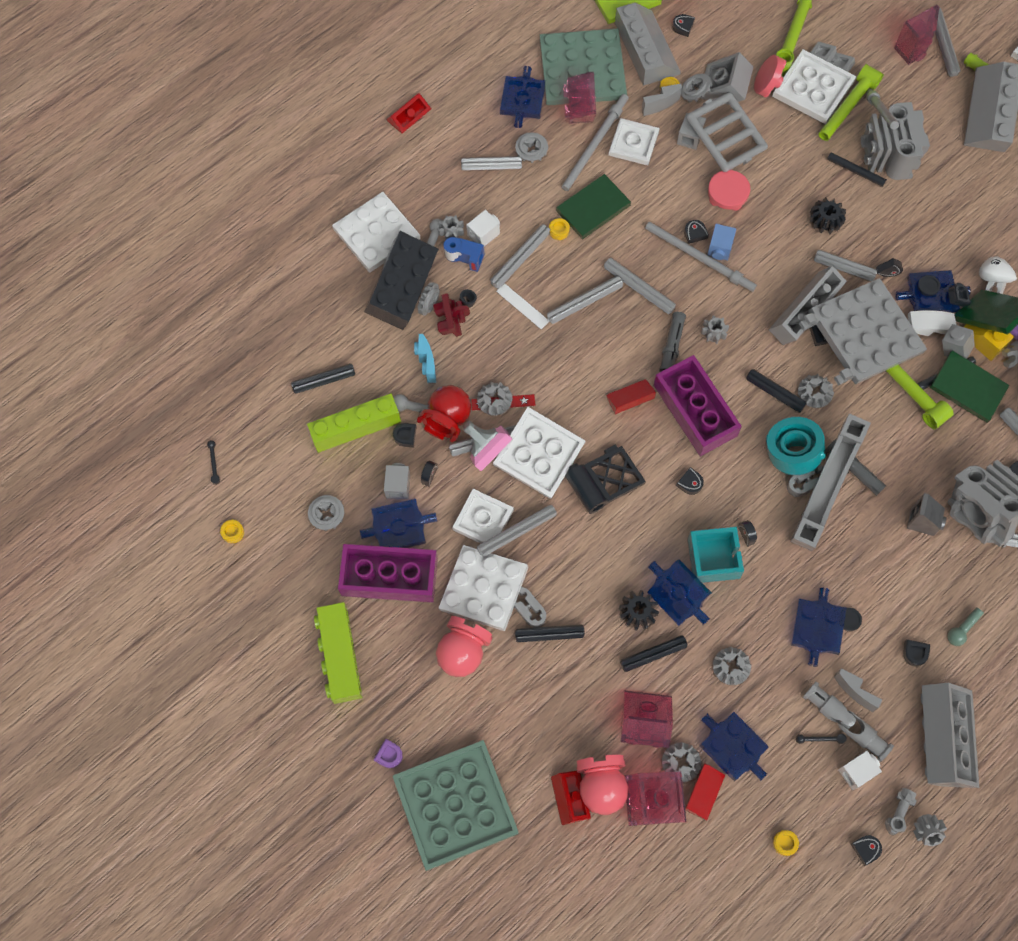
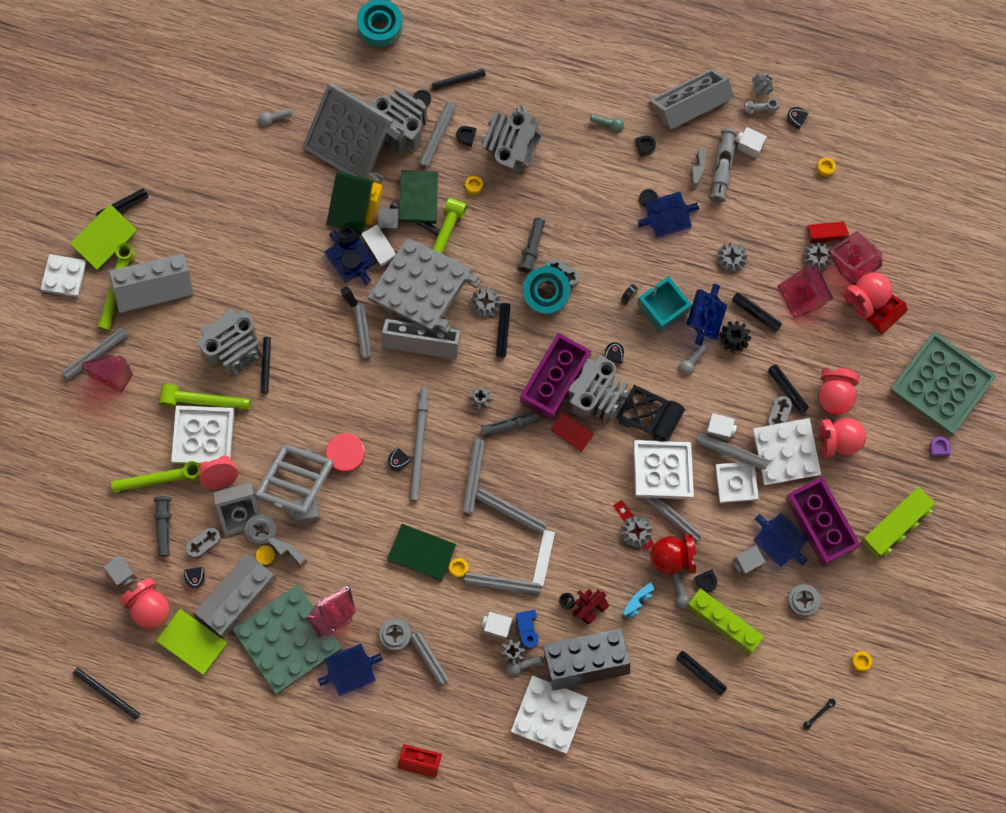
camera: 125 degrees left, 5 degrees up
(428, 298) = (588, 628): light grey gear -> none
(428, 473) = (726, 542): black tile -> none
(486, 443) = (682, 509): piece -> none
(511, 674) = (838, 391): none -> coral tile
(549, 536) = (721, 427): none -> white brick
(614, 113) = (320, 584): light grey bar -> none
(634, 141) = (341, 552): white plate -> none
(634, 546) = (687, 366): none -> light grey bar
(657, 433) = (597, 391): none -> light grey piece
(706, 44) = (201, 538): none -> light grey beam
(721, 242) = (400, 432): medium blue brick -> none
(734, 746) = (786, 228): clear blue plate -> none
(754, 23) = (162, 516): none -> dark grey pin
(827, 215) = (334, 364): black gear -> none
(829, 54) = (163, 436): light grey slope -> none
(829, 482) = (534, 253): light grey arch -> none
(841, 738) = (735, 165): black hinge -> none
(874, 99) = (193, 380): light grey bar -> none
(927, 516) = (544, 179): flat silver slope -> none
(955, 449) = (473, 185): none -> yellow tile
(997, 273) = (310, 216): white piece -> none

